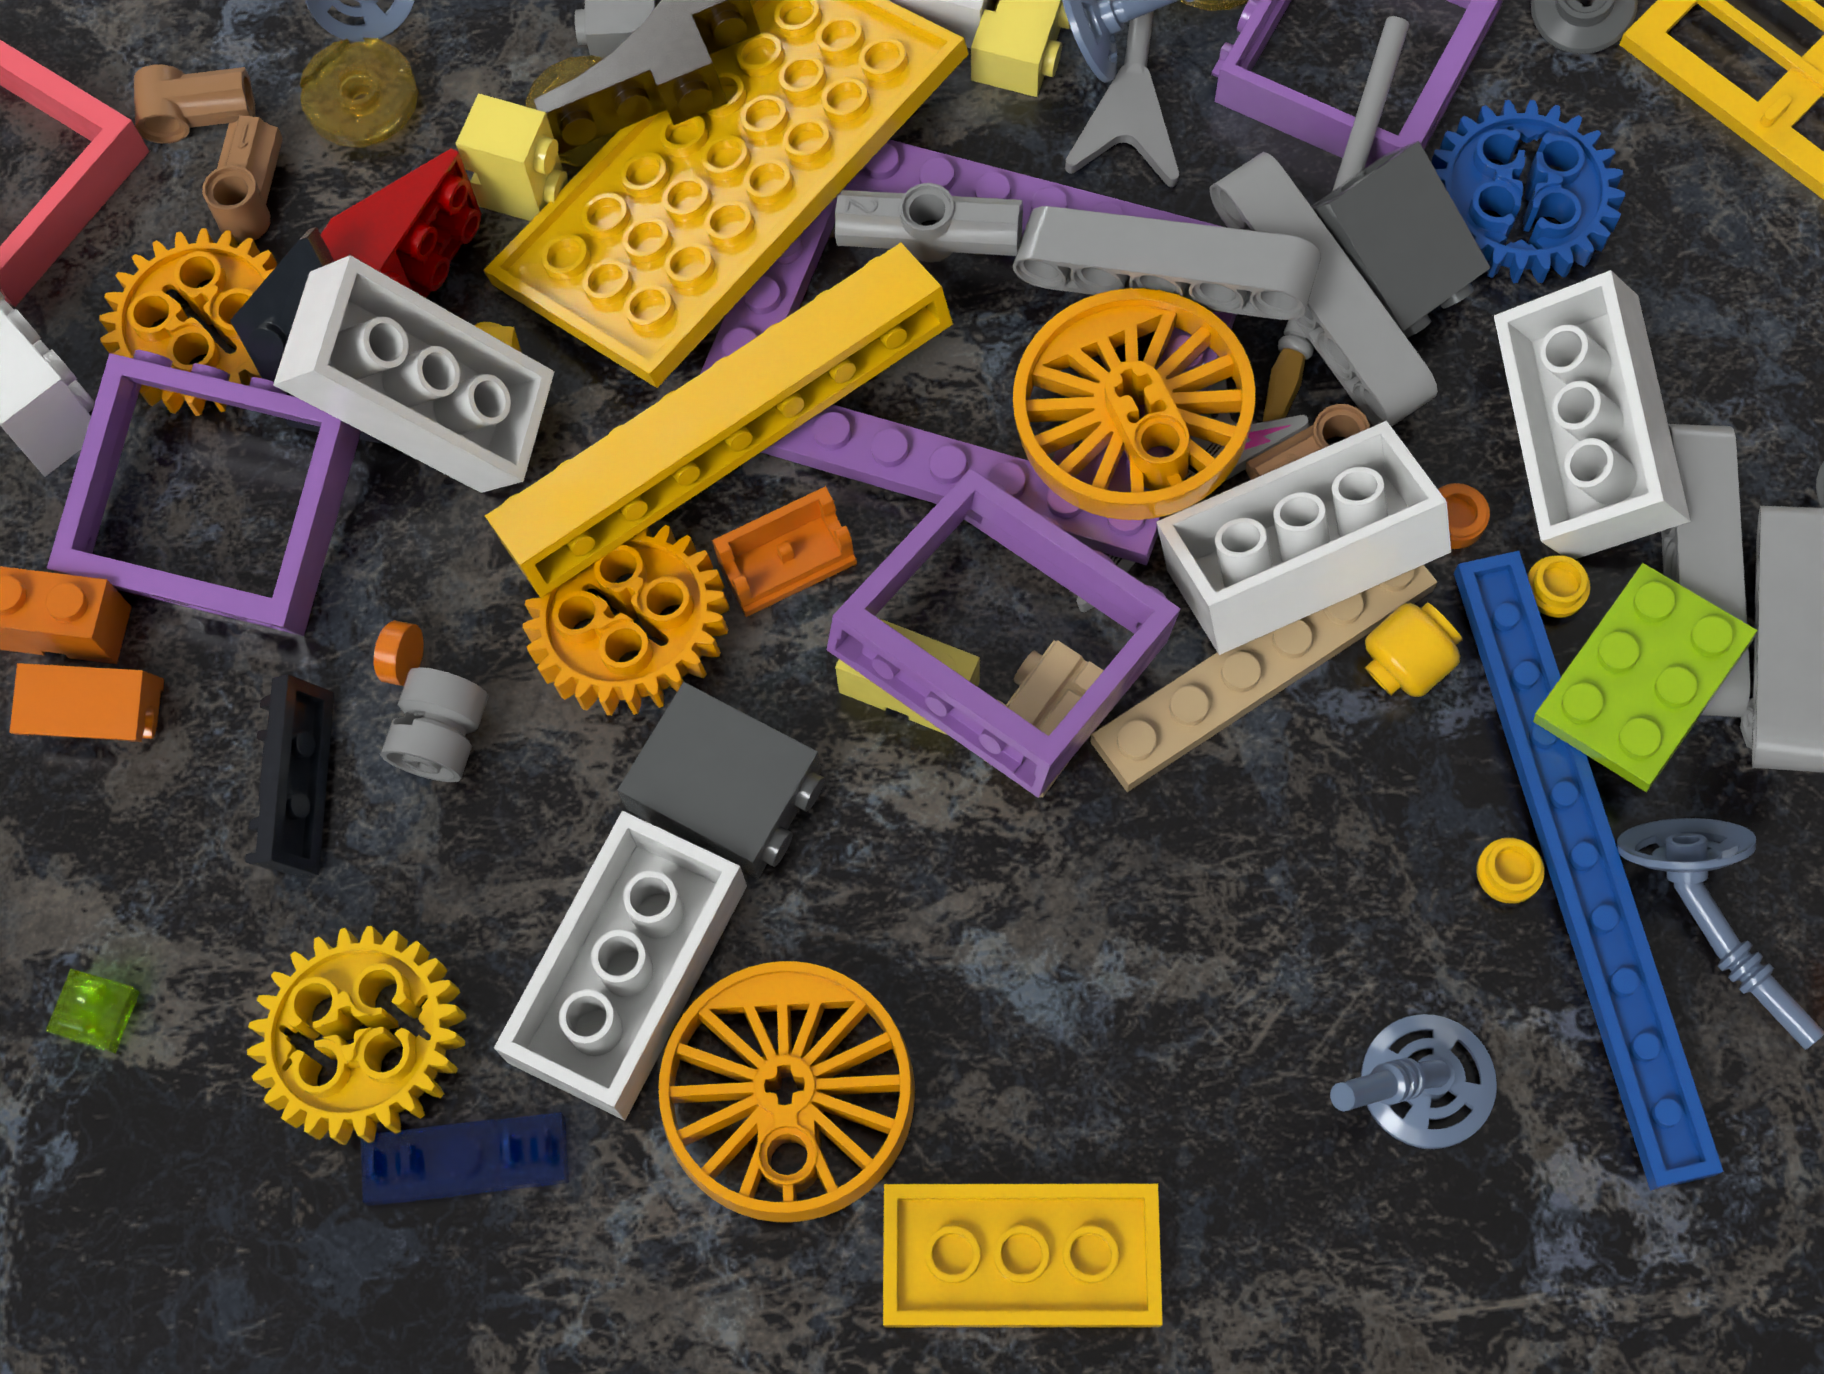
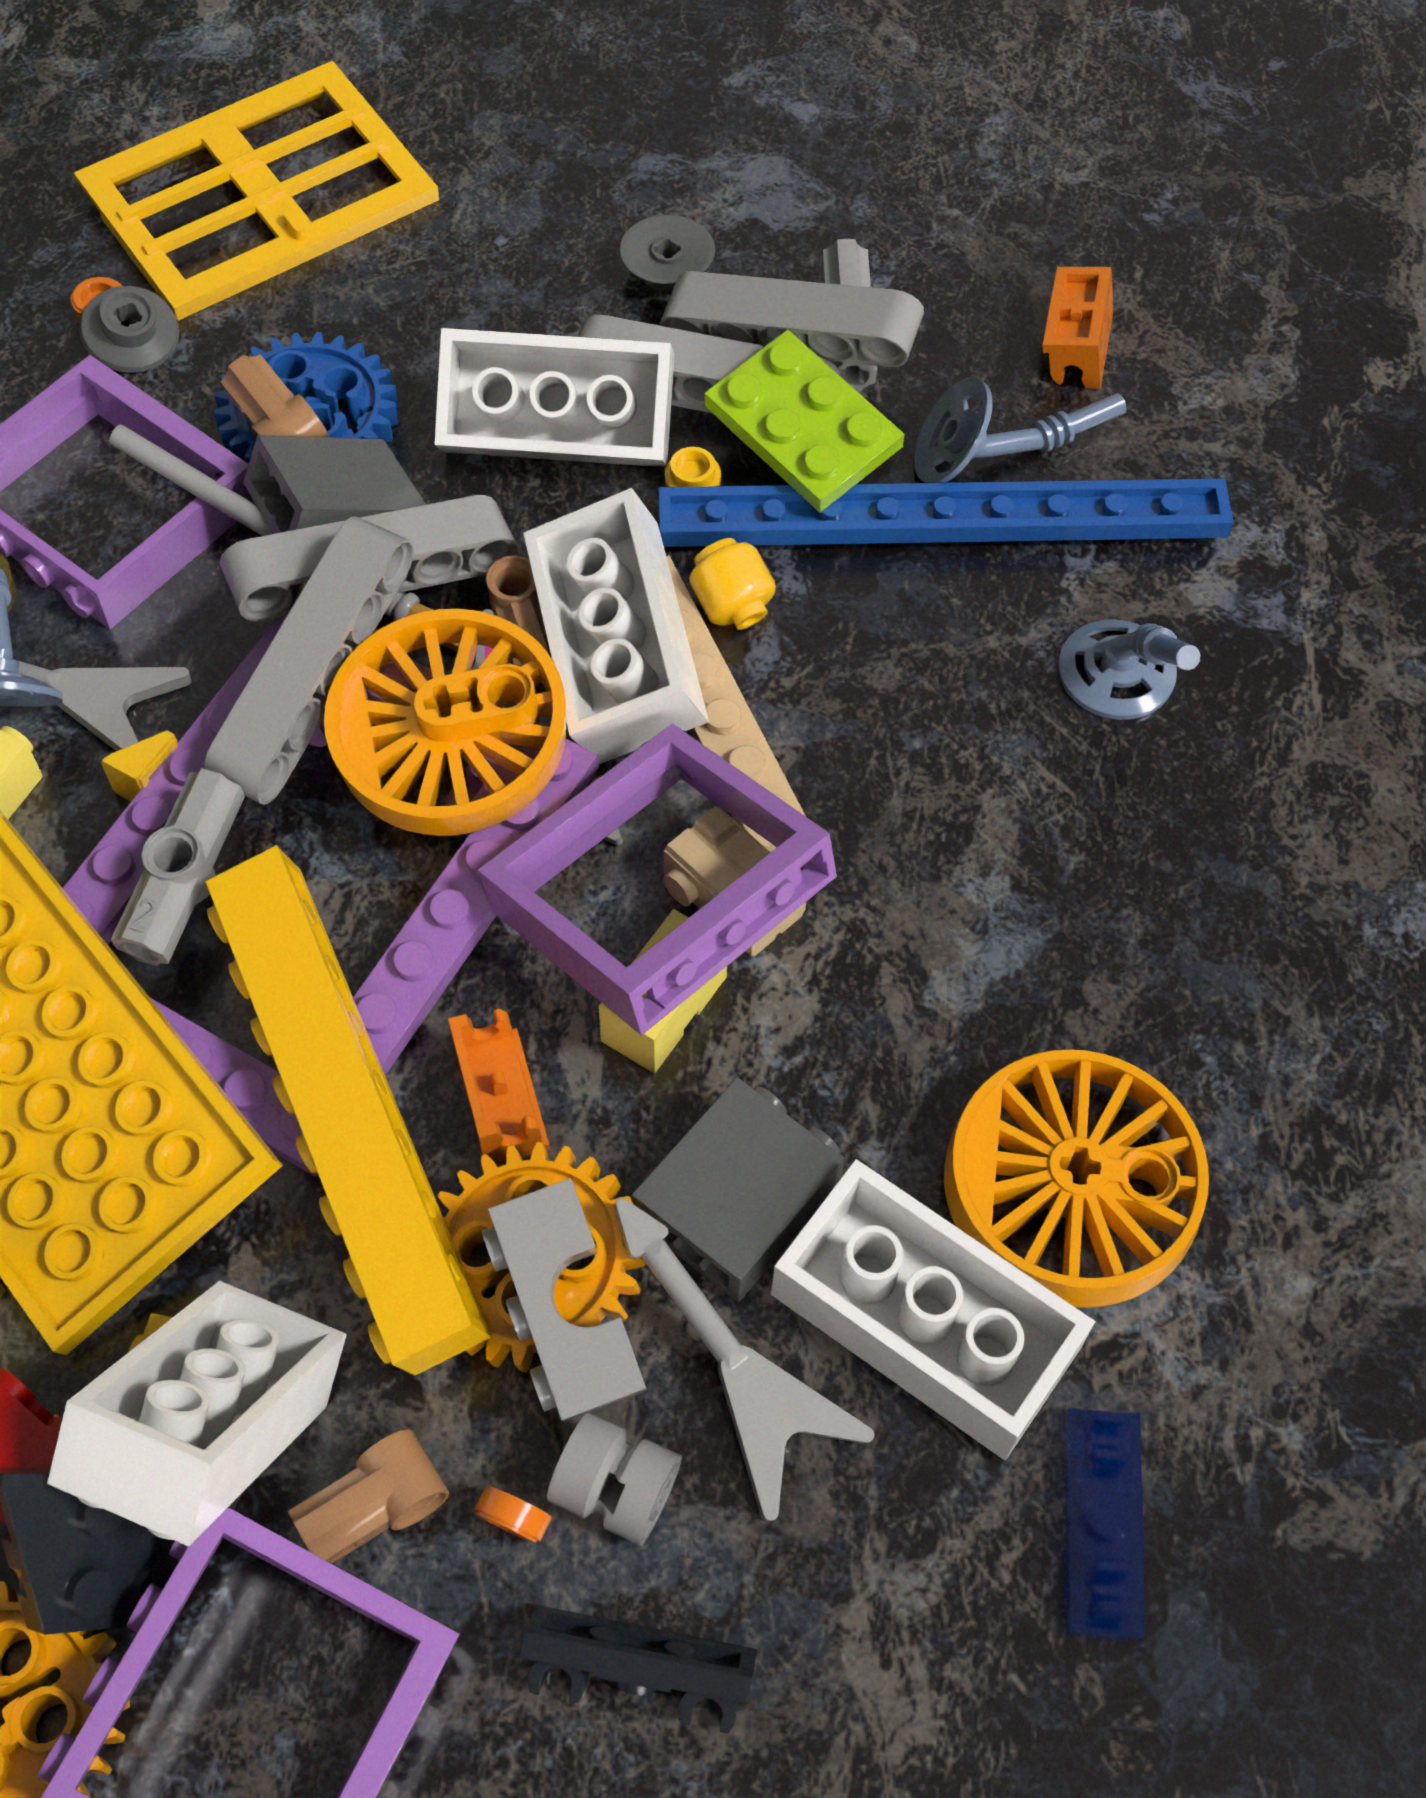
camera: 85 degrees left, 10 degrees down
(359, 1090) = (1027, 1615): yellow gear -> none
(404, 549) = (387, 1490): none -> medium nougat piece
(515, 664) = (537, 1241): none -> light grey arch
(528, 835) = (761, 1397): none -> light grey piece
(1021, 1255) = (1252, 1006): yellow plate -> none
(1047, 163) = (134, 765): none -> yellow slope
(1474, 159) = (268, 401): none -> medium nougat piece
(1510, 870) = (944, 564): yellow plate -> none

